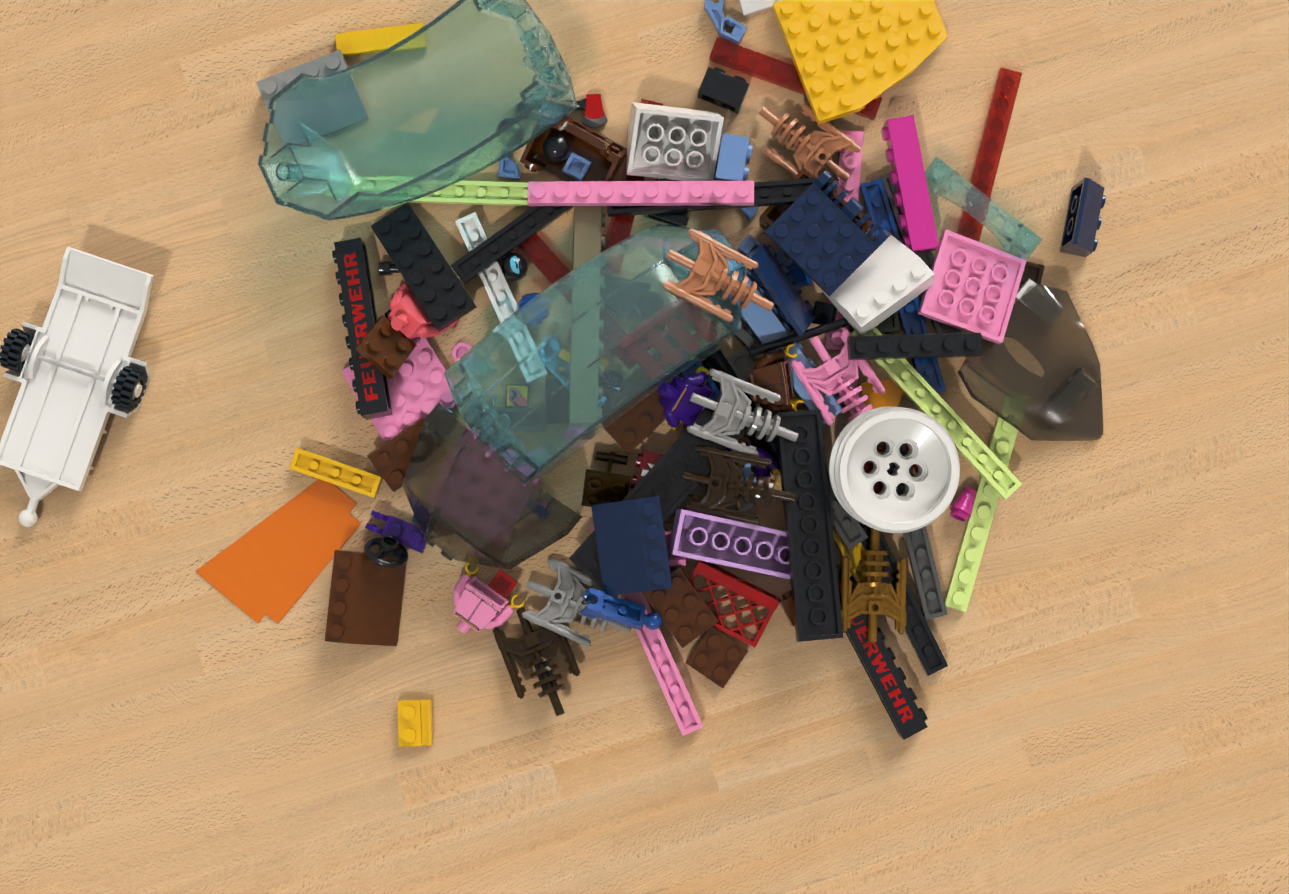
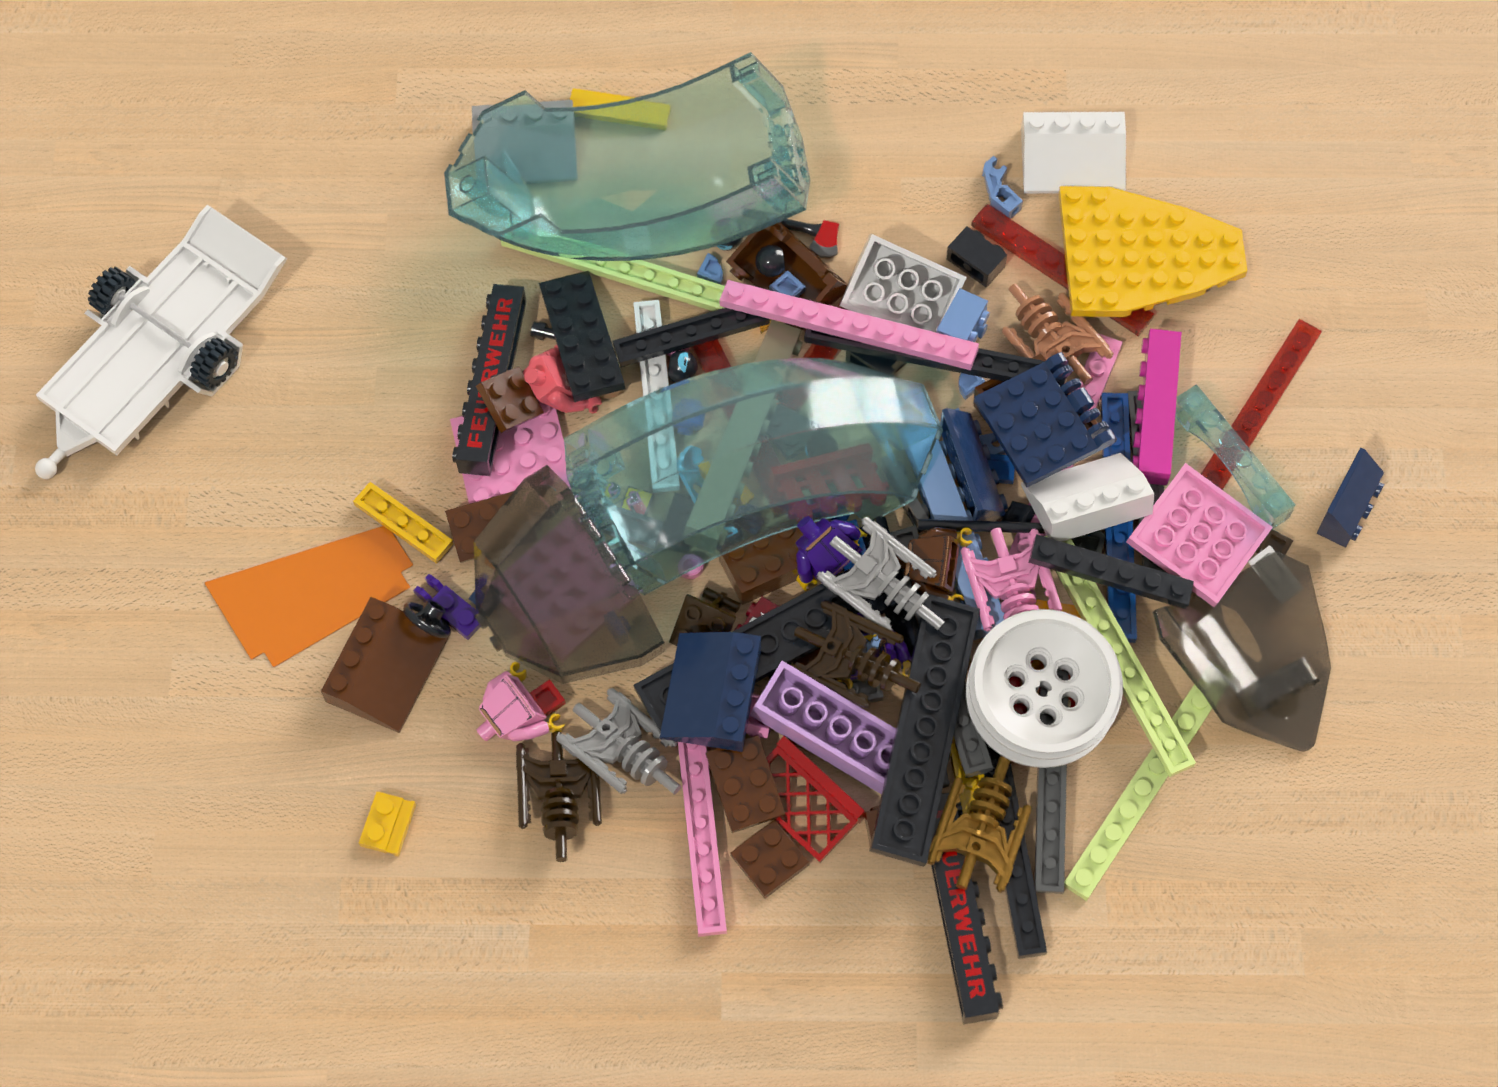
camera: 25 degrees right, 20 degrees down
(618, 610) = (670, 758): blue plate -> none
(709, 275) = (895, 408): nougat bar -> none
(963, 505) = (1119, 775): dark pink cone -> none

